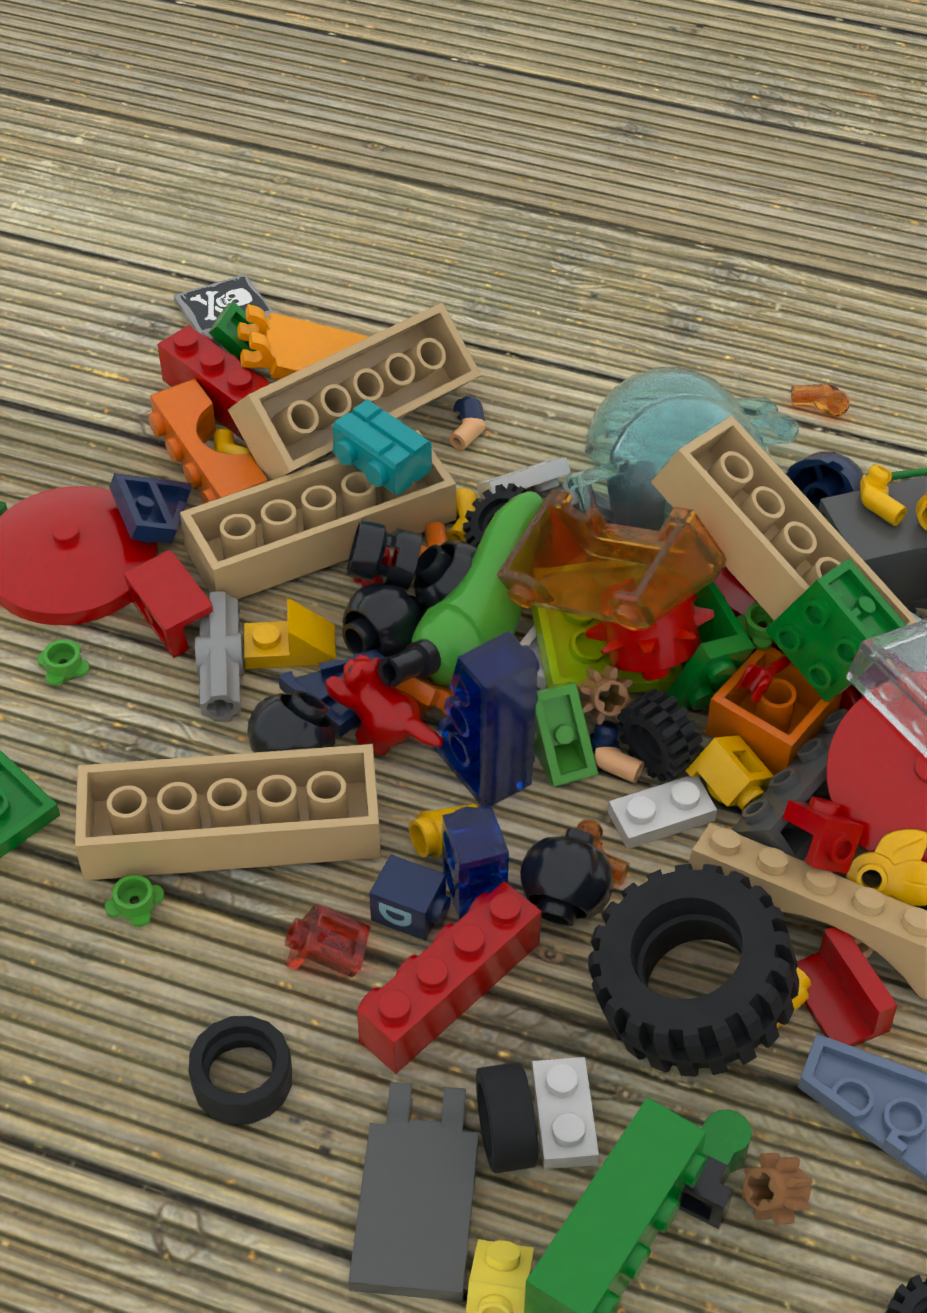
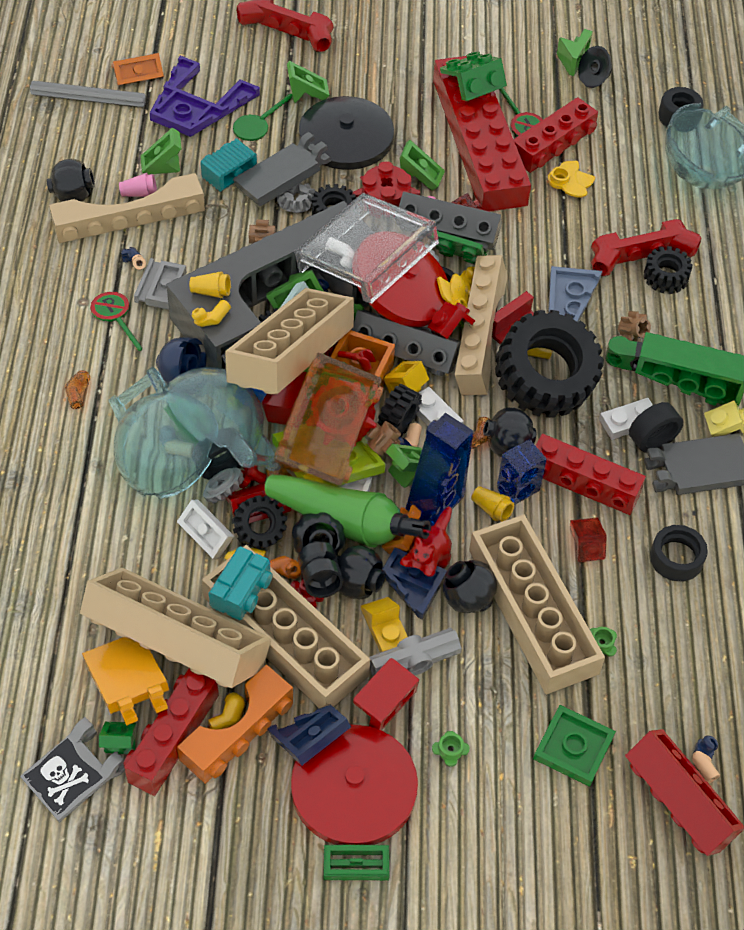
camera: 110 degrees left, 5 degrees up
(409, 897) = (546, 506): dark blue brick -> none
(472, 422) = (159, 575): arm -> none
(828, 625) = (343, 304): green bracket -> none

